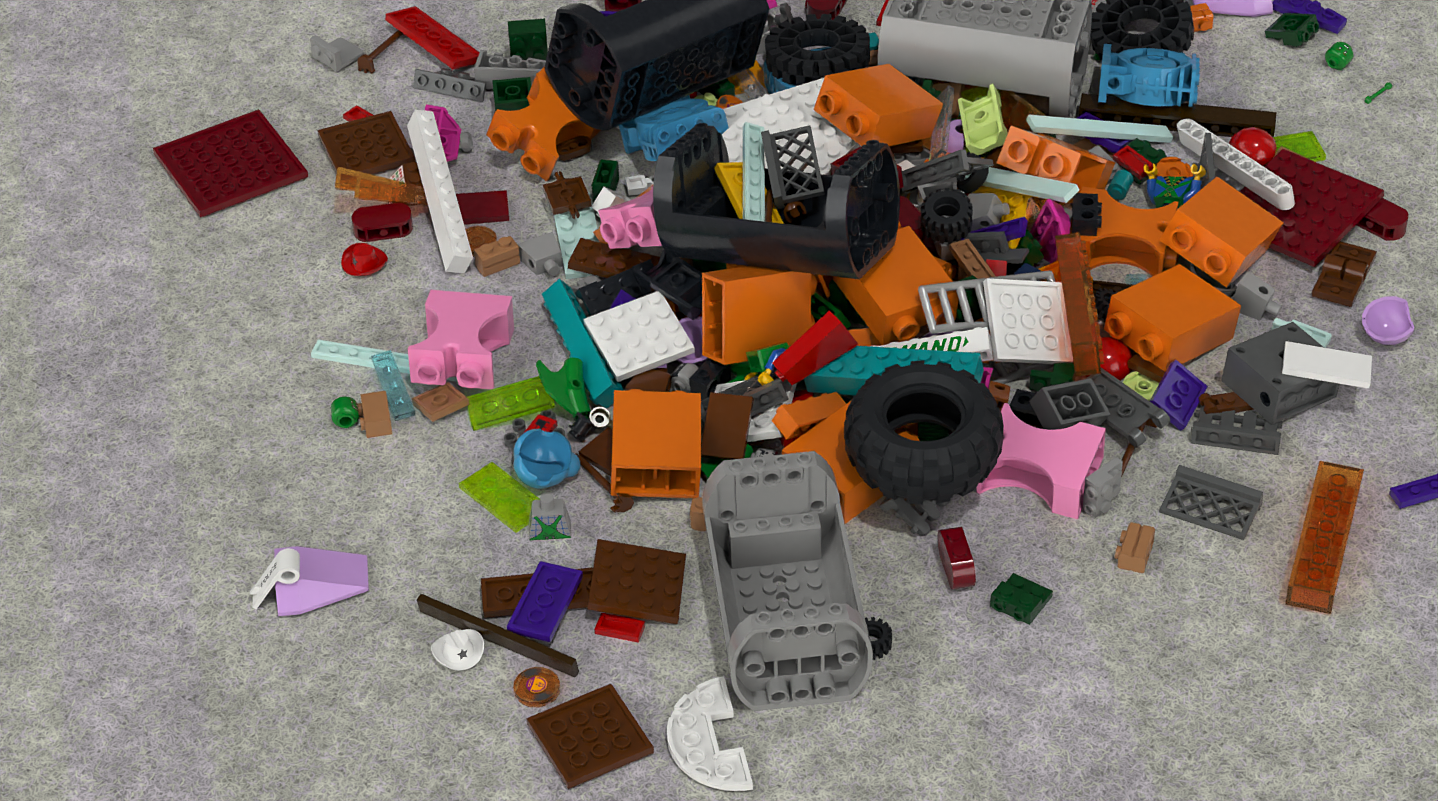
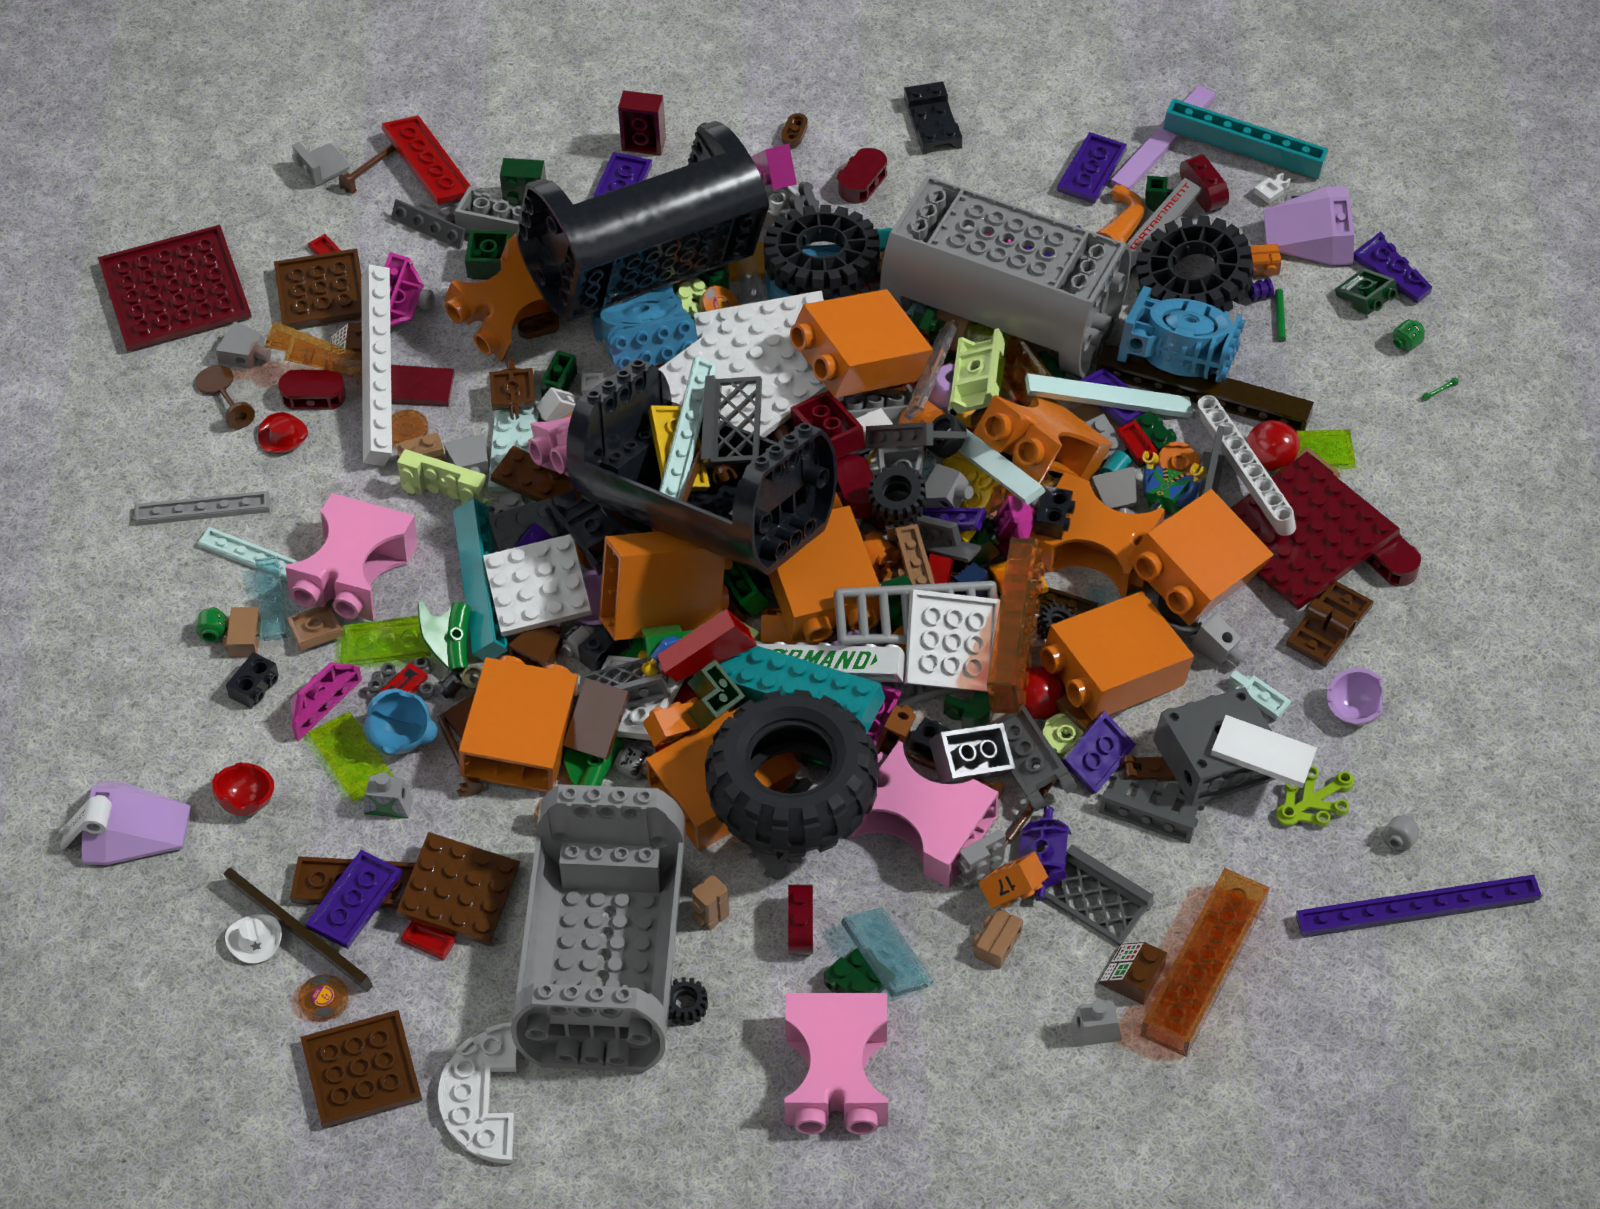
camera: 10 degrees right, 10 degrees up
(287, 228) = (217, 379): none -> reddish brown piece
(306, 327) = (202, 508): none -> light grey tile
(307, 199) = (242, 347): none -> light grey torso
(395, 450) = (256, 675): none -> black brick
(415, 532) = (243, 788): none -> red cylinder
(464, 451) = (322, 695): none -> dark pink wedge
(507, 268) = (424, 472): none -> yellowish green piece
(831, 387) = (716, 692): none -> brick
(872, 555) = (710, 902): none -> medium nougat brick
(1020, 646) = (836, 1040): none -> bright pink brick
(1041, 572) = (887, 952): none -> clear light blue tile
(1130, 193) = (1117, 489): none -> light grey torso
(1137, 496) = (1013, 881): none -> orange brick
(1159, 487) = (1054, 835): none -> dark purple plate
(1201, 40) = (1261, 289): none -> dark purple bush
(1223, 57) = (1280, 315): none -> green bar
(1245, 597) = (1095, 1024): none -> light grey torso
(1264, 554) = (1134, 970): none -> reddish brown slope
(1359, 419) = (1314, 801): none -> lime plant

